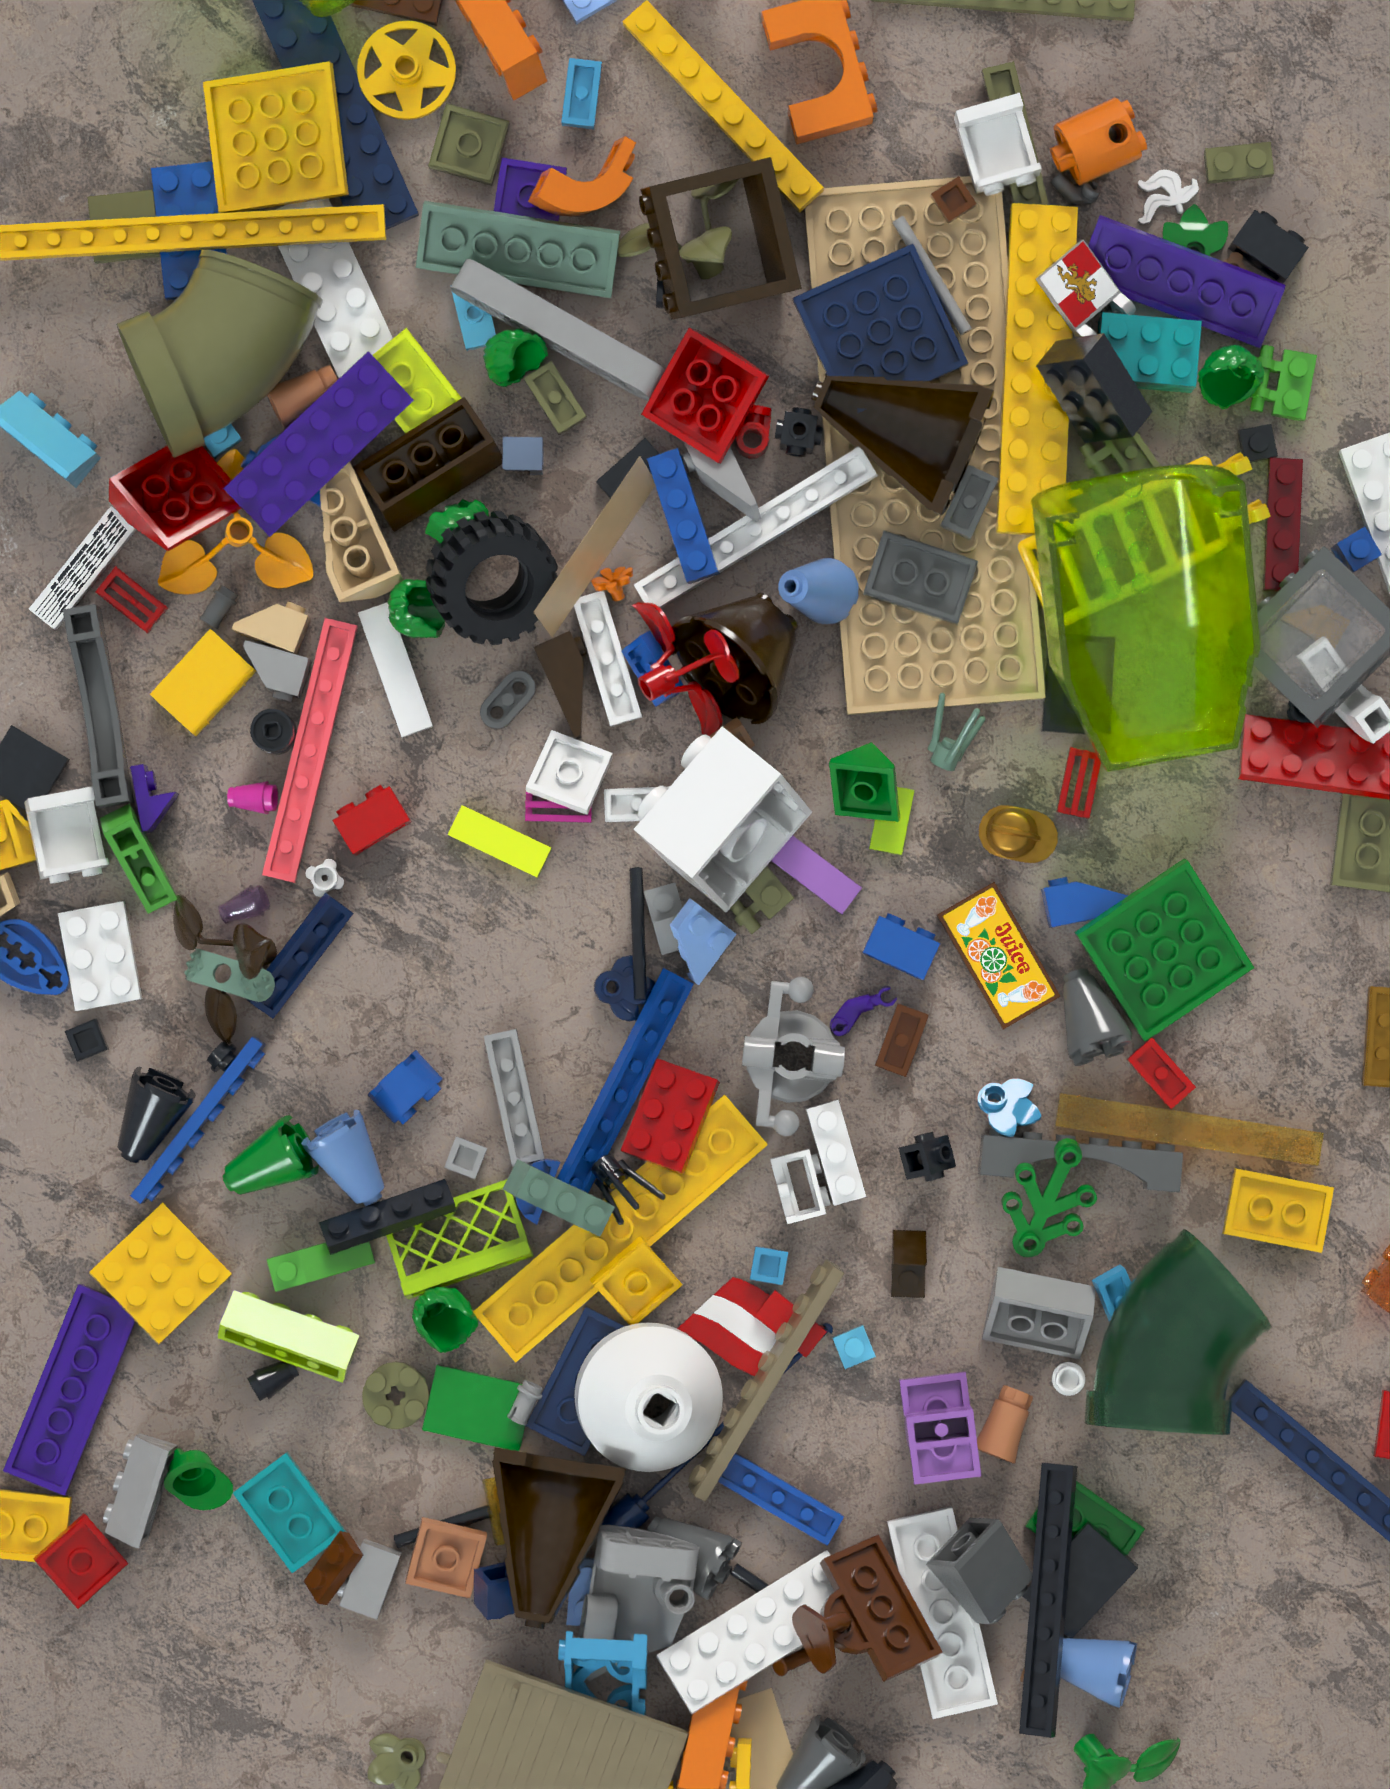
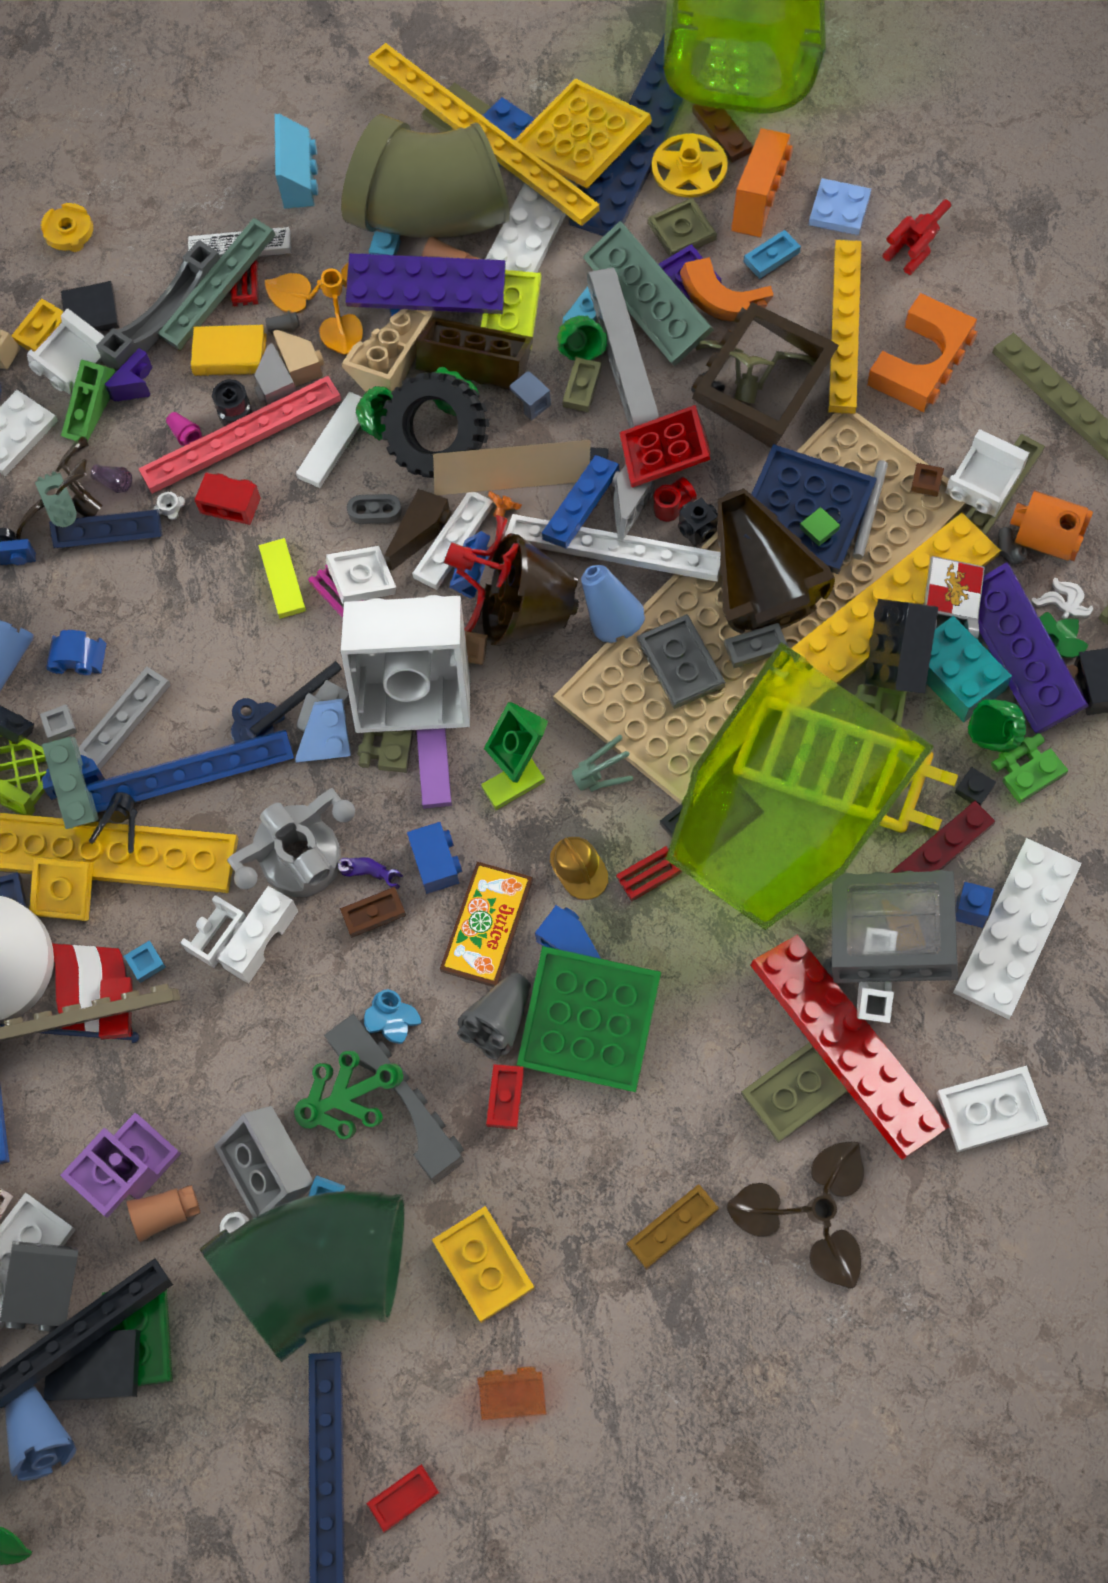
camera: 55 degrees right, 20 degrees down
(119, 631) = (216, 283): none -> sand green plate
(172, 496) = (323, 239): red slope -> none
(670, 1116) = (191, 814): red plate -> none
(853, 1347) = (135, 1065): medium azure plate -> none
(908, 1263) = (226, 1048): dark brown slope -> none
(915, 341) = (819, 526): none -> bright green tile
(927, 1157) = (307, 993): black brick -> none
(1189, 1129) = (485, 1152): clear yellow plate -> none

